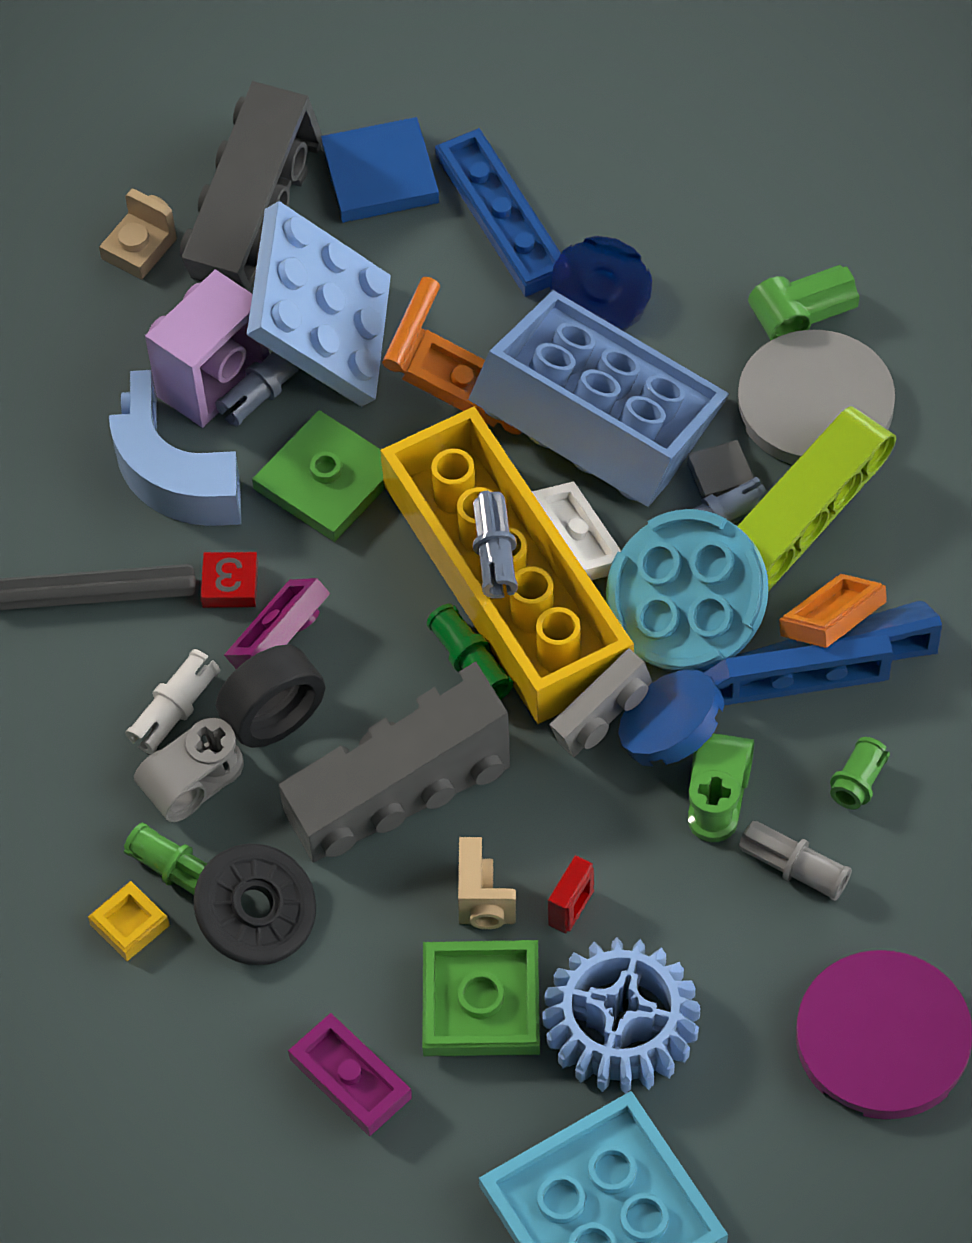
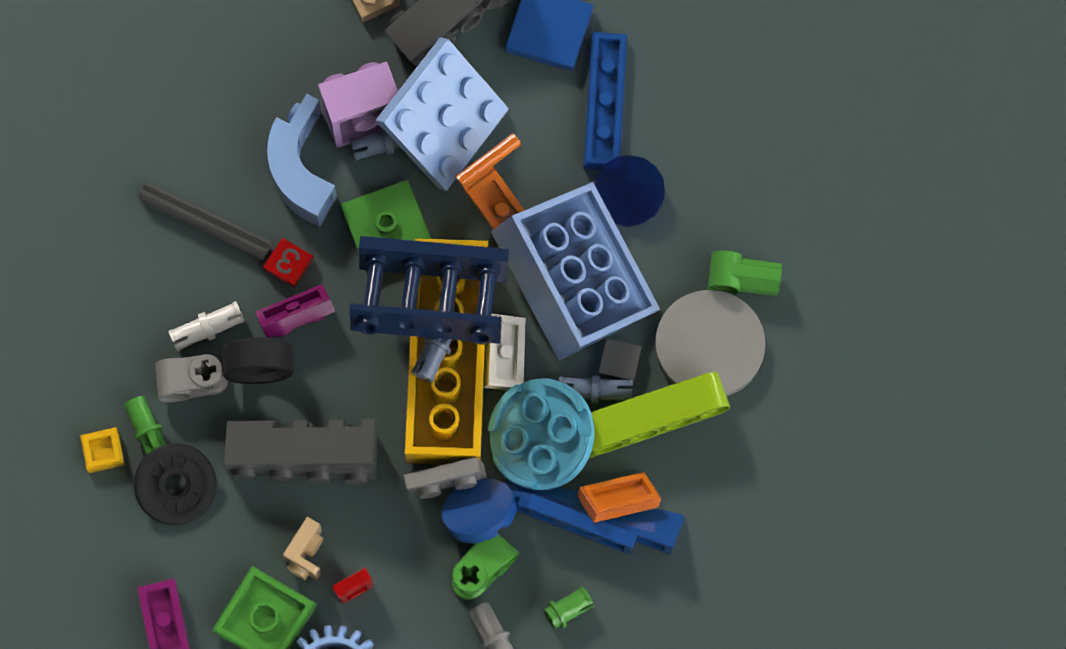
camera: 25 degrees right, 15 degrees up
(432, 448) = (429, 259): none -> dark blue fence
(467, 647) = (394, 395): green pin -> none

